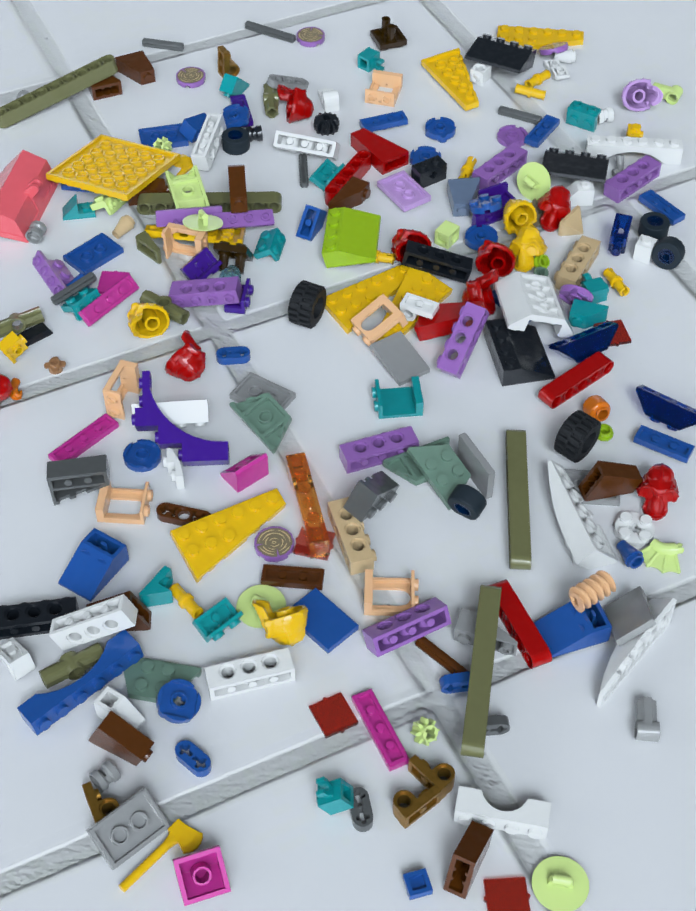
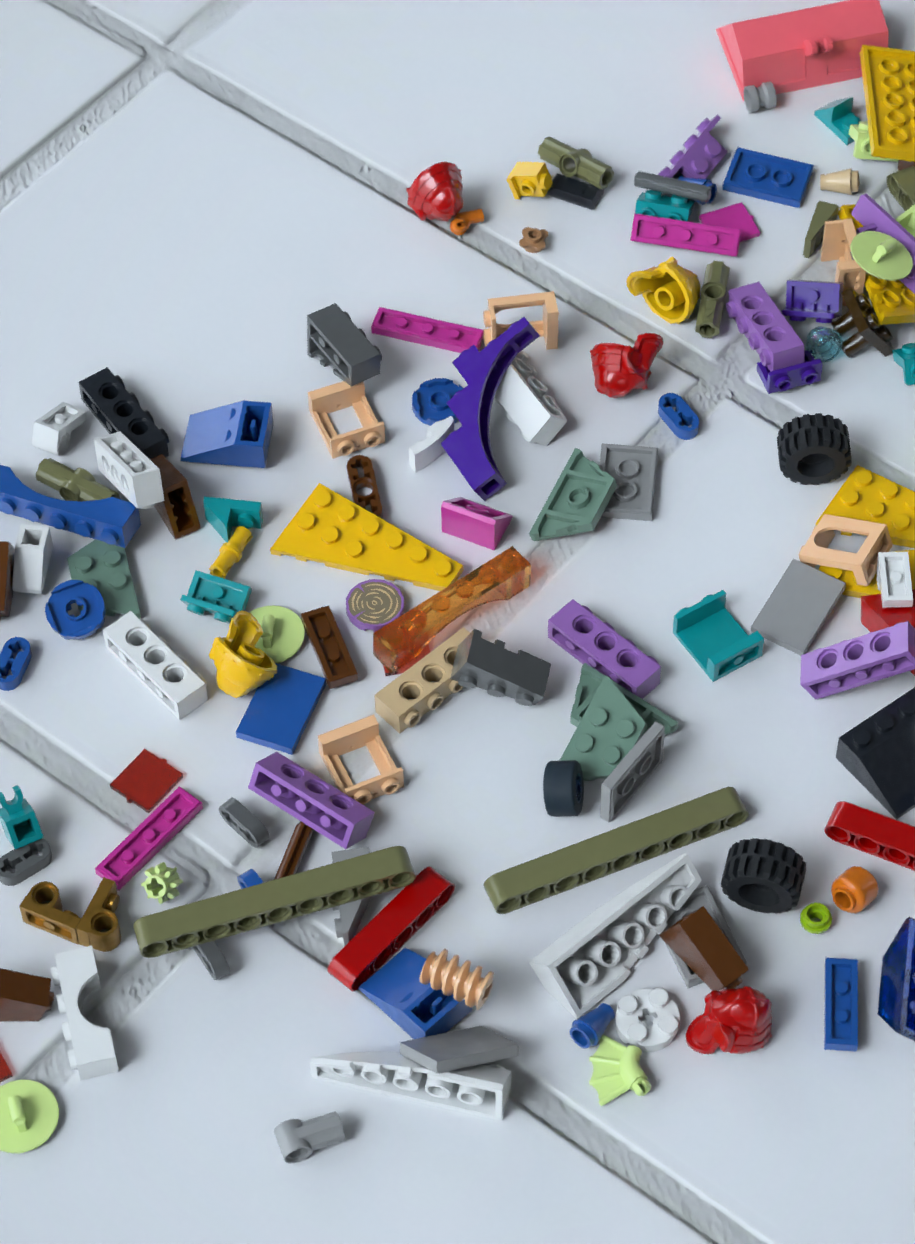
camera: 65 degrees right, 5 degrees up
(400, 670) = (244, 822): none -> dark grey beam

